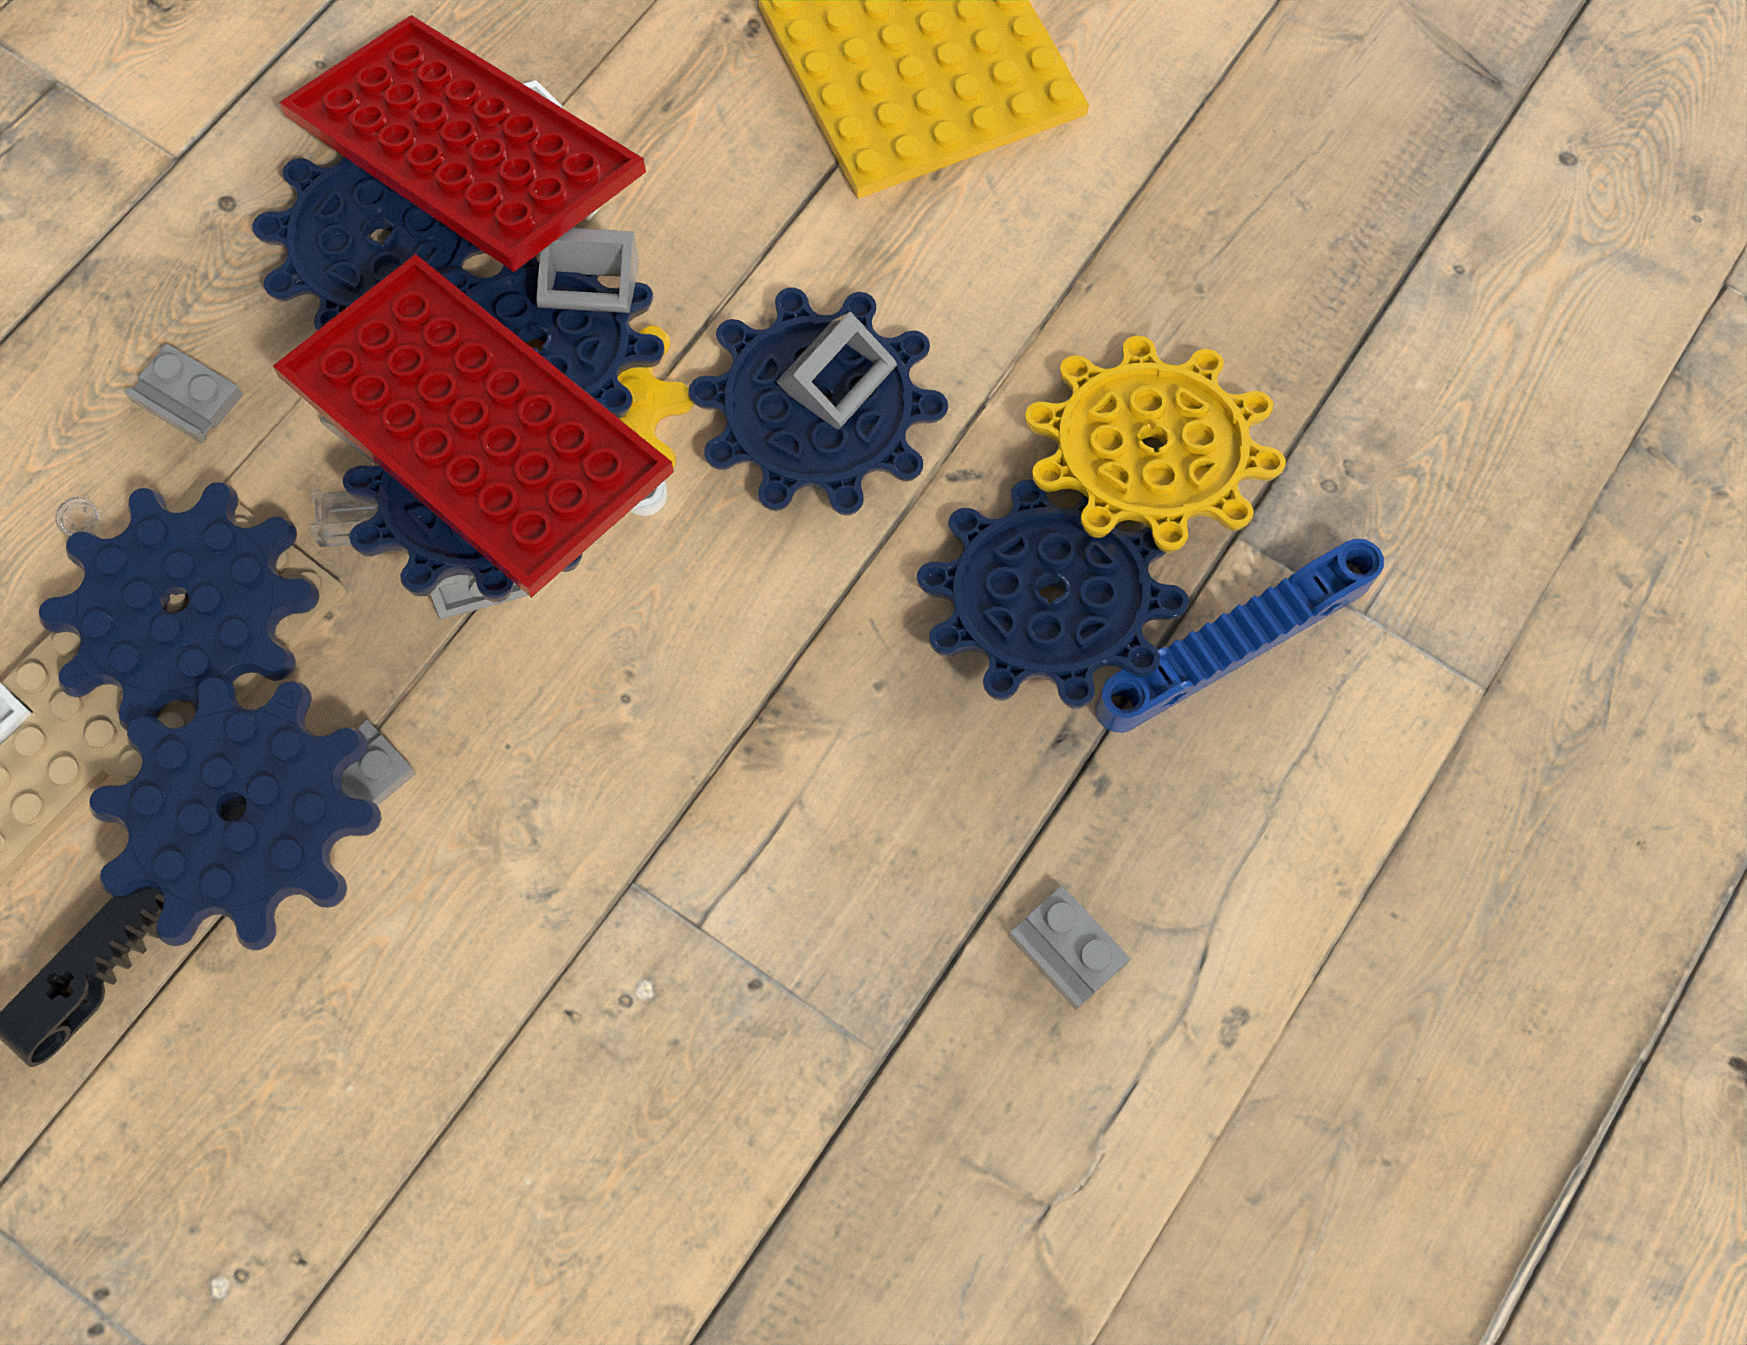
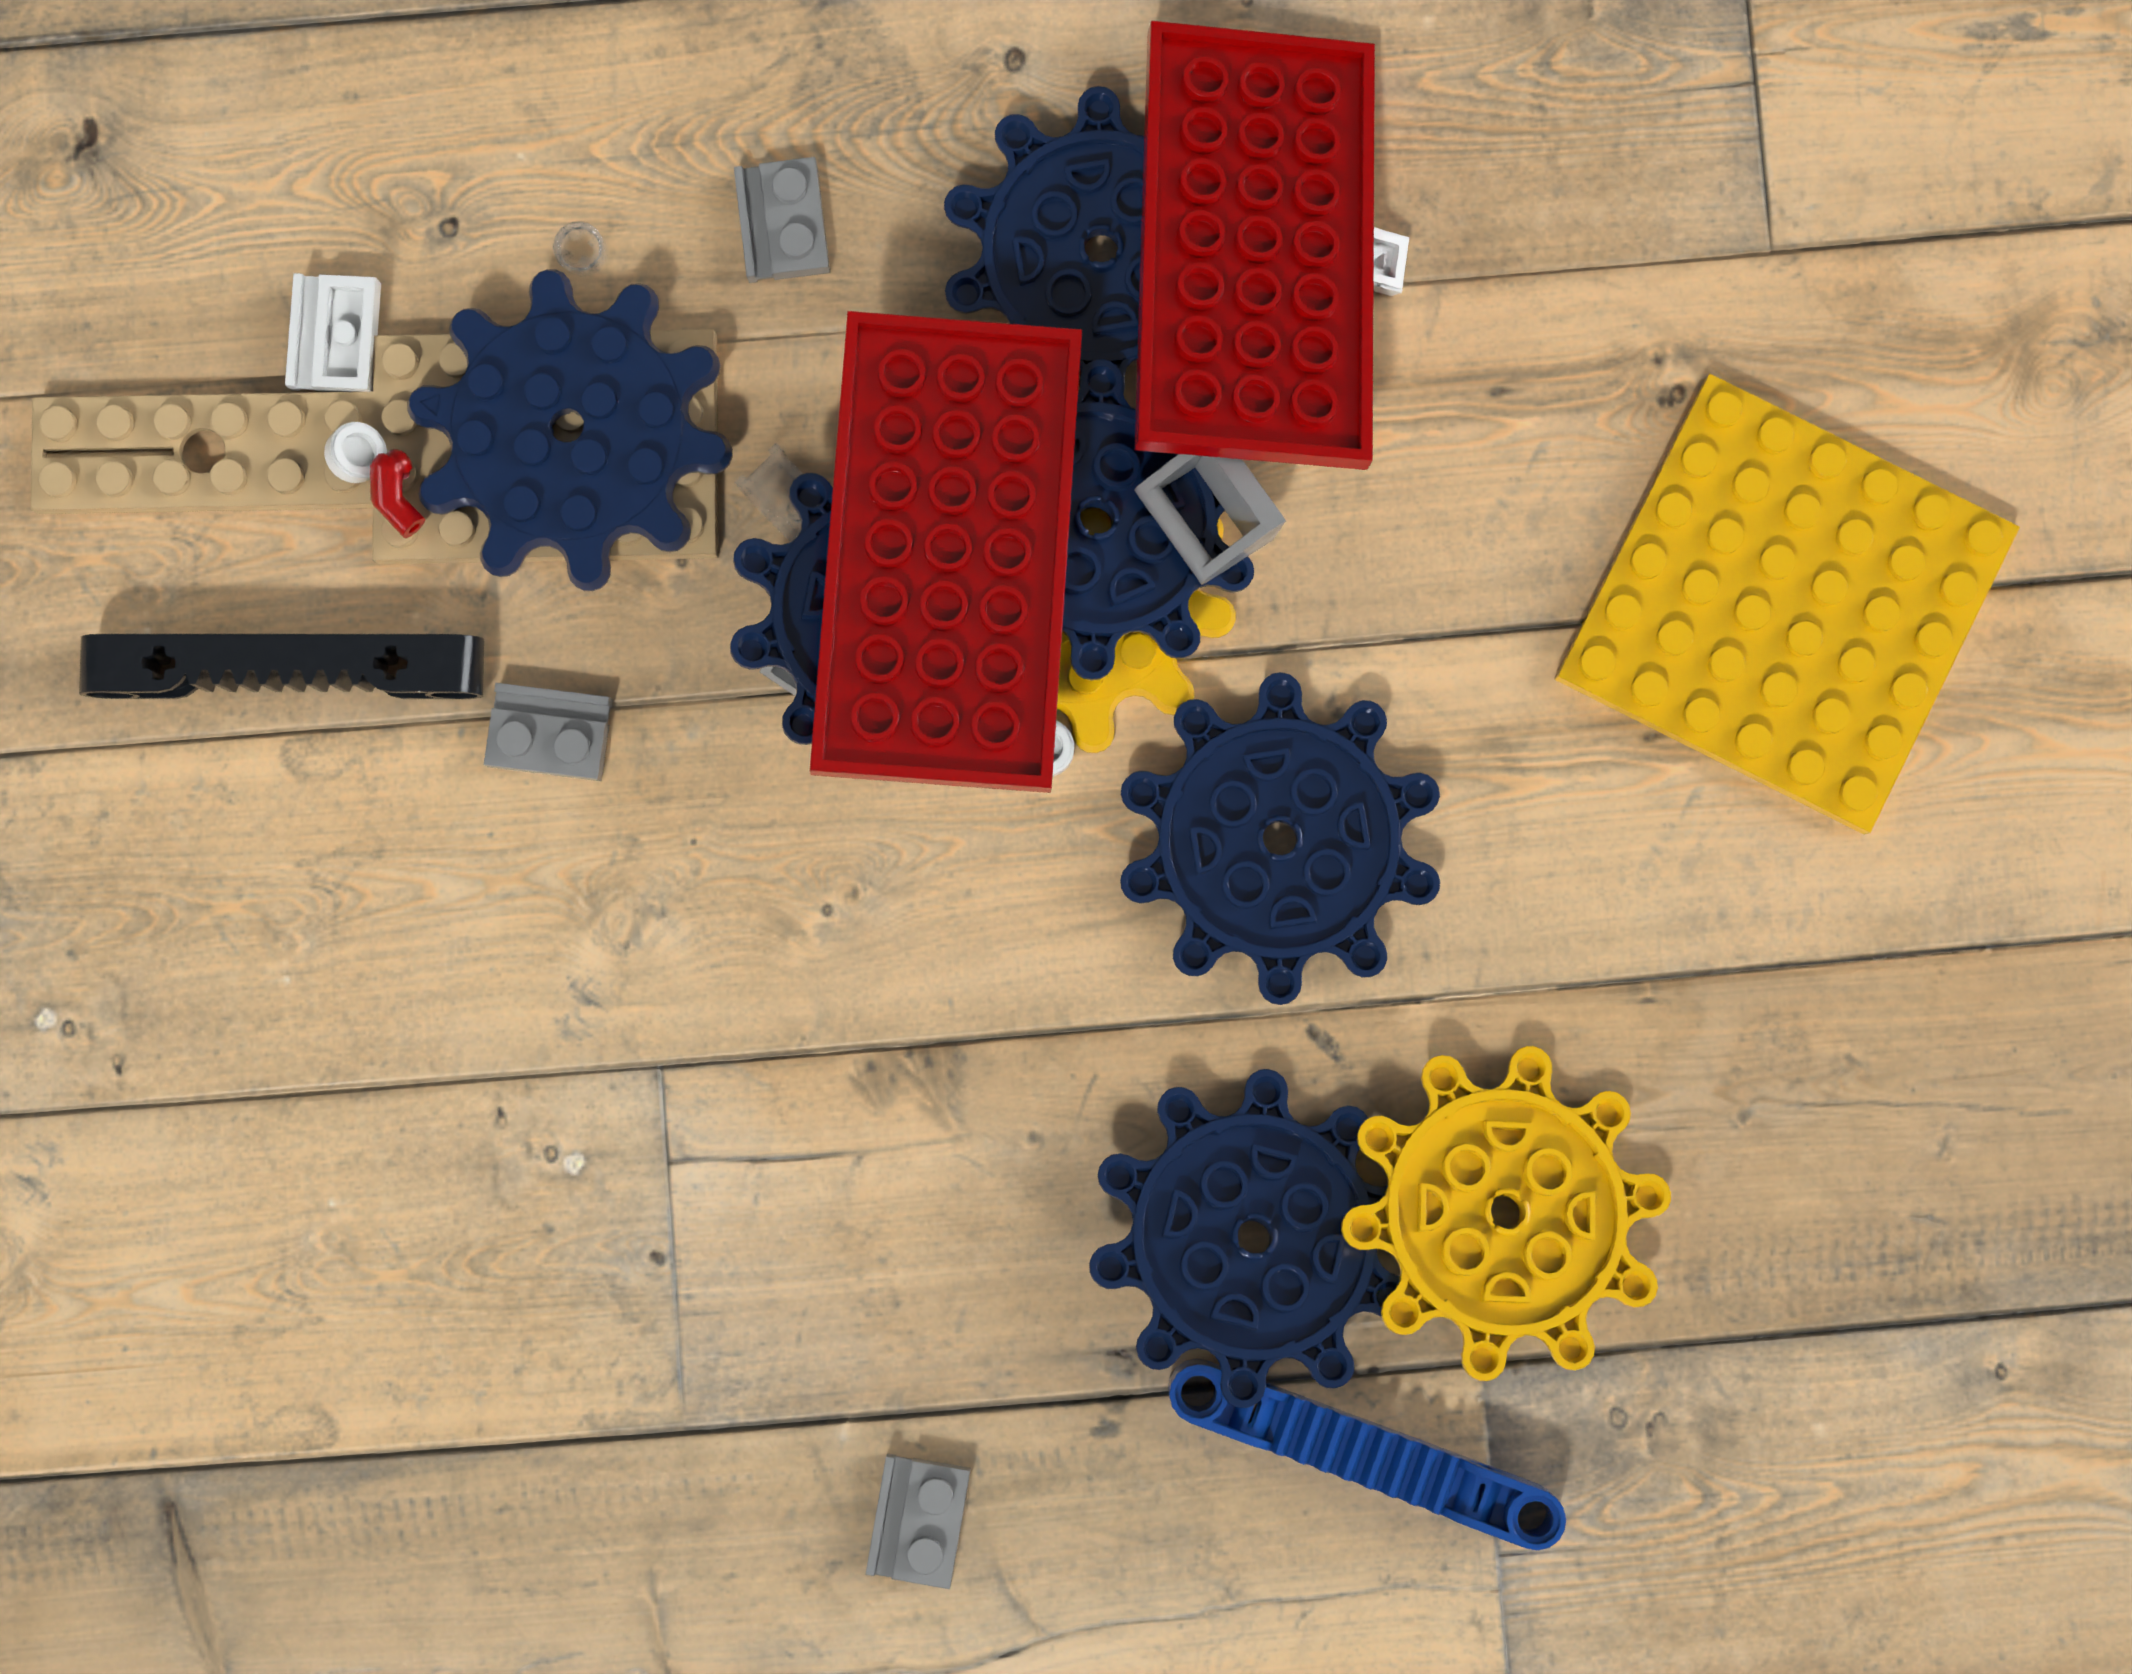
camera: 60 degrees right, 15 degrees up
(58, 747) = (352, 450): none -> white tile
(100, 742) = (387, 491): none -> red arm
(245, 863) = (485, 682): dark blue plate -> none
(841, 331) = (1319, 808): light grey tile -> none

